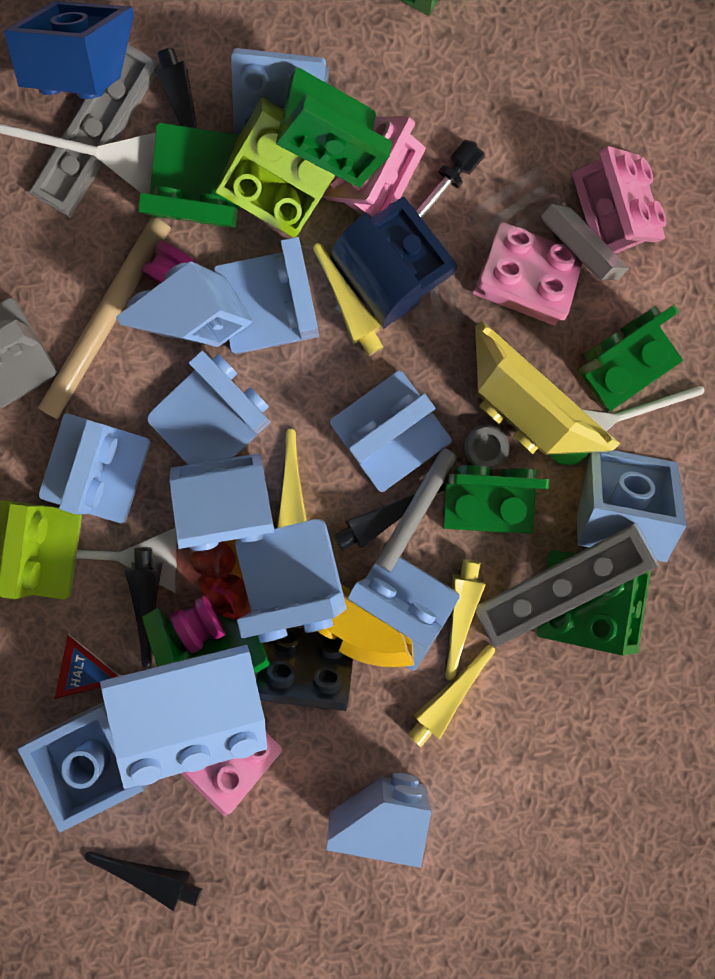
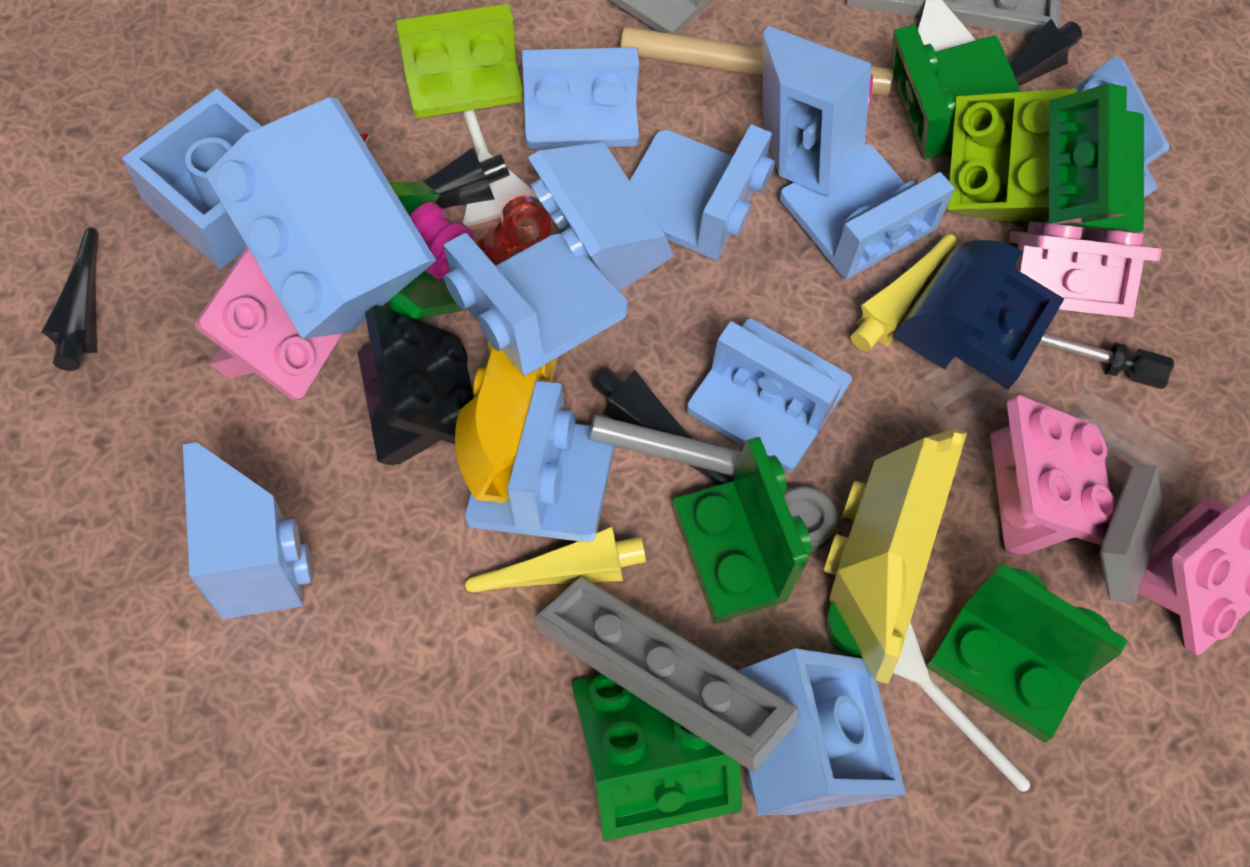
camera: 65 degrees right, 25 degrees down
(292, 504) = (651, 305): light yellow piece -> none
(440, 709) = (416, 581): light yellow piece -> none

